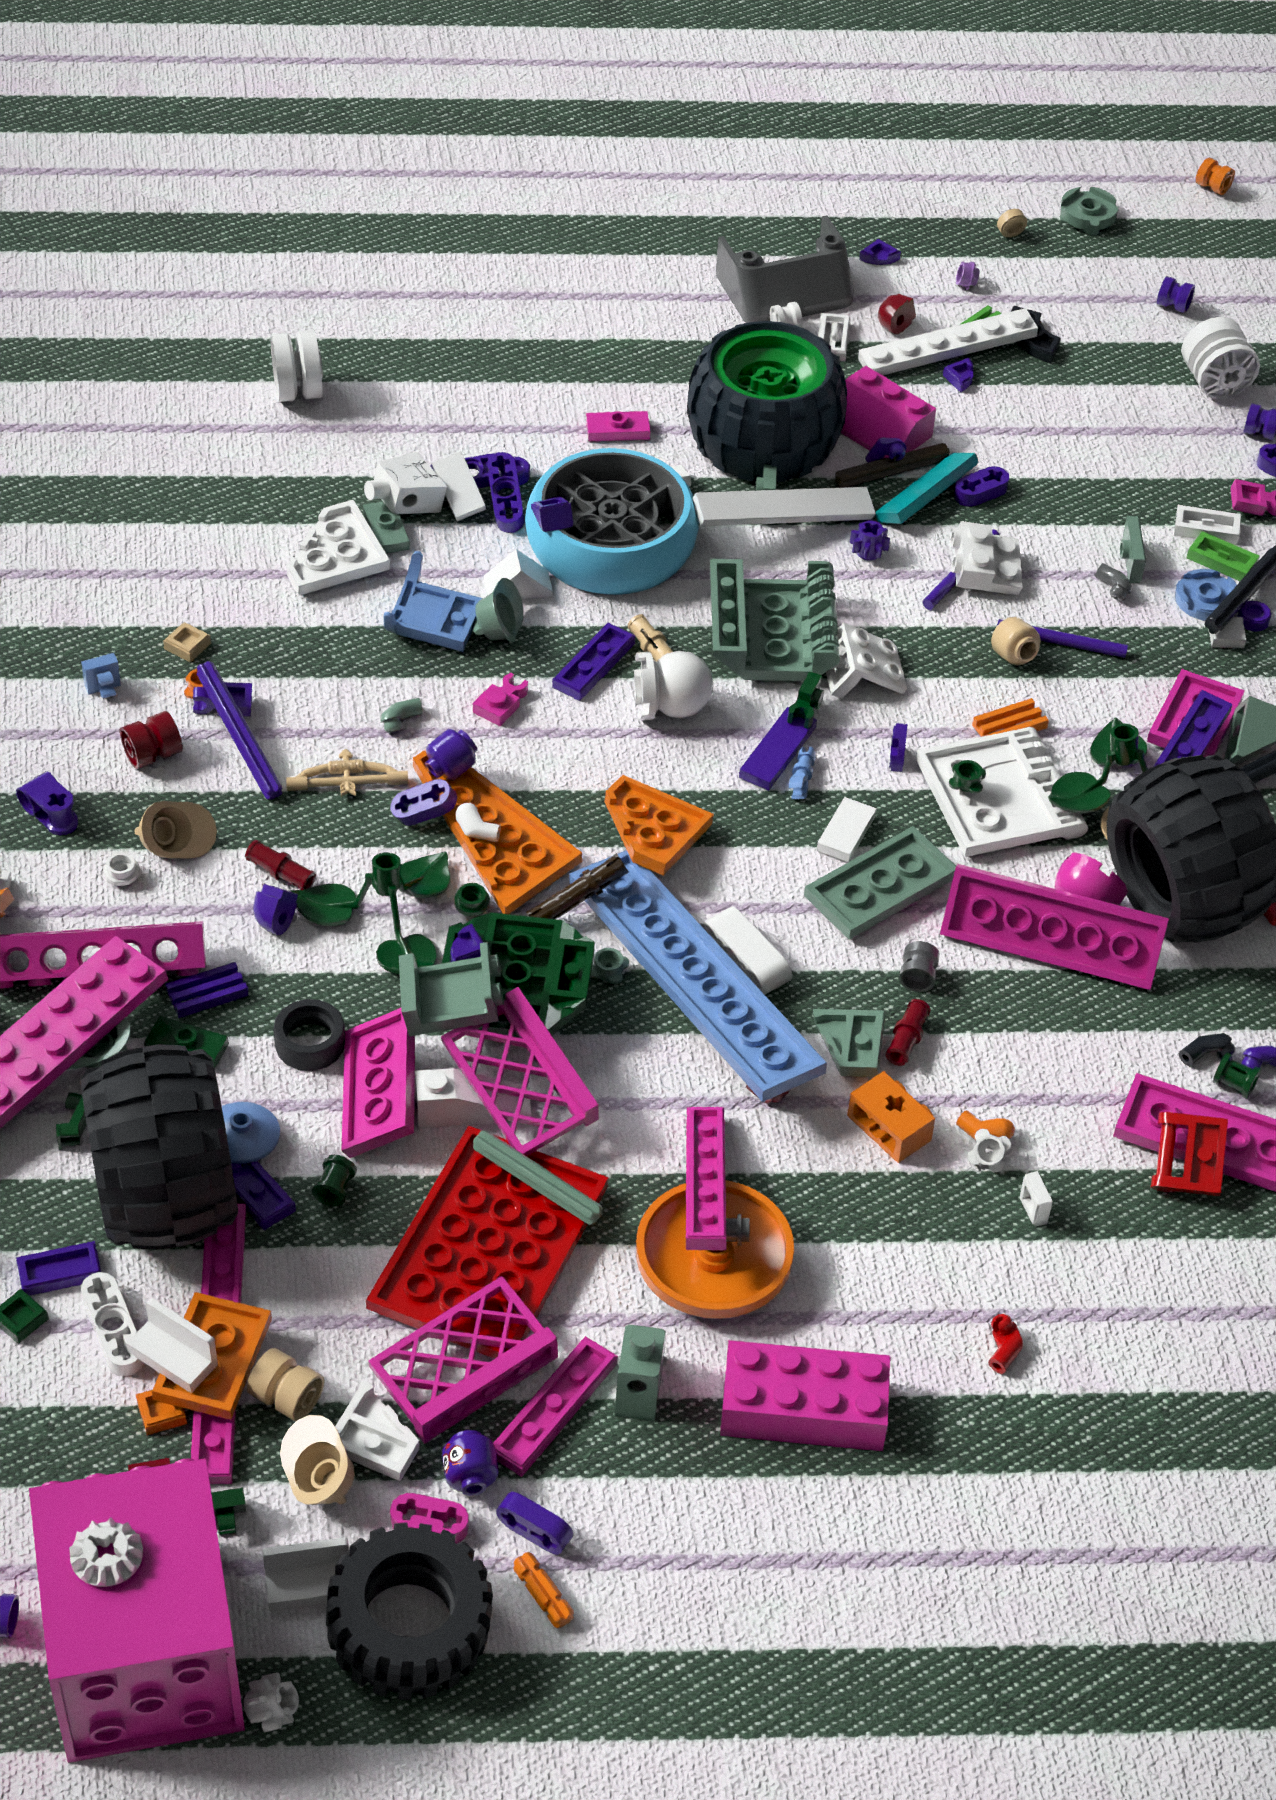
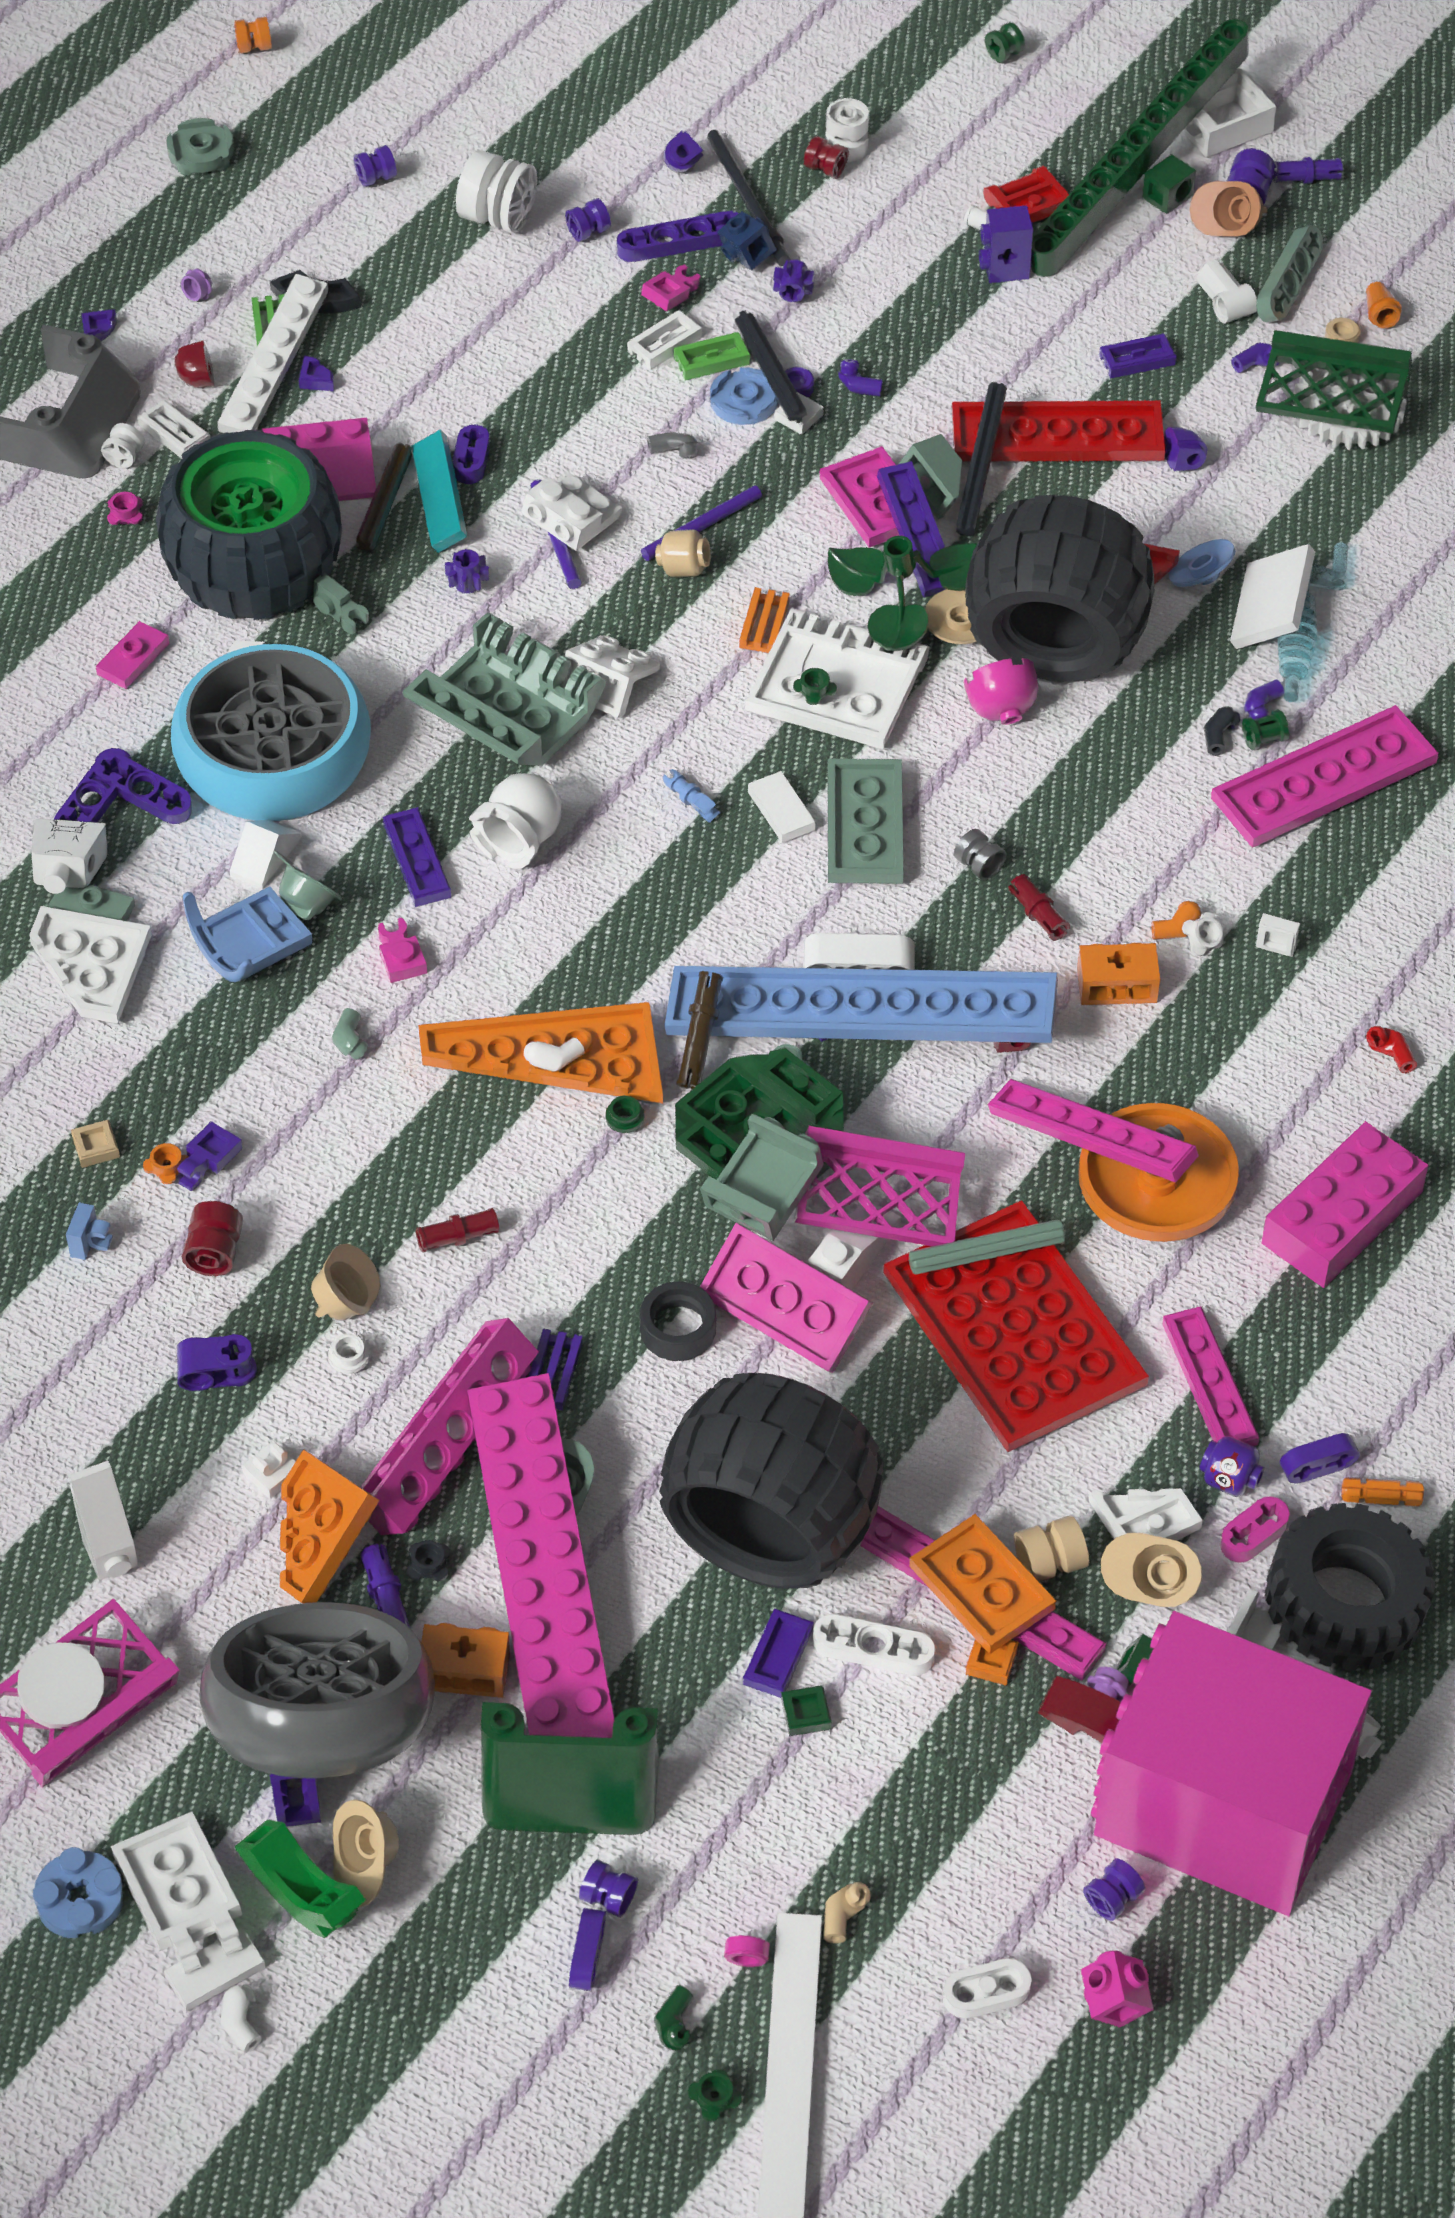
camera: 50 degrees left, 5 degrees up
(70, 1133) = (610, 1534): dark green piece -> none
(108, 1569) = (1211, 1742): white gear -> none
(173, 1032) = (604, 1417): dark green plate -> none
(174, 1347) = (967, 1599): white panel -> none
(239, 730) = (265, 1163): dark purple axle -> none
(274, 908) = (506, 1263): dark purple piece -> none
(334, 1180) = (858, 1394): dark green bush -> none
(346, 783) = (377, 1111): tan piece -> none
(421, 877) = (565, 1138): dark green plant -> none
(423, 802) = (476, 1075): beam -> none
(451, 754) = (459, 1021): dark purple head -> none
(461, 488) = (121, 819): white tile -> none
(466, 944) = (716, 1139): dark purple tile -> none
(482, 1385) = (1161, 1408): dark pink fence -> none
(553, 514) = (248, 763): dark purple slope -> none
(643, 631) = (413, 797): tan pin -> none
(643, 1361) = (1238, 1296): sand green torso -> none
(654, 824) = (661, 930): orange plate -> none
(776, 751) = (646, 794): dark purple tile -> none
(783, 506) = (377, 601): white tile -> none
(809, 697) = (616, 737): dark green plate -> none
(852, 1039) = (1013, 946): sand green wing -> none
(887, 446) = (368, 483): dark purple arm -> none
(898, 747) = (727, 711): dark purple tile -> none
(1012, 223) = (164, 209): tan tile -> none
(1054, 926) = (1025, 738): dark pink plate -> none
(1133, 549) = (652, 405): sand green plate -> none
(1202, 1158) = (1332, 801): red plate -> none

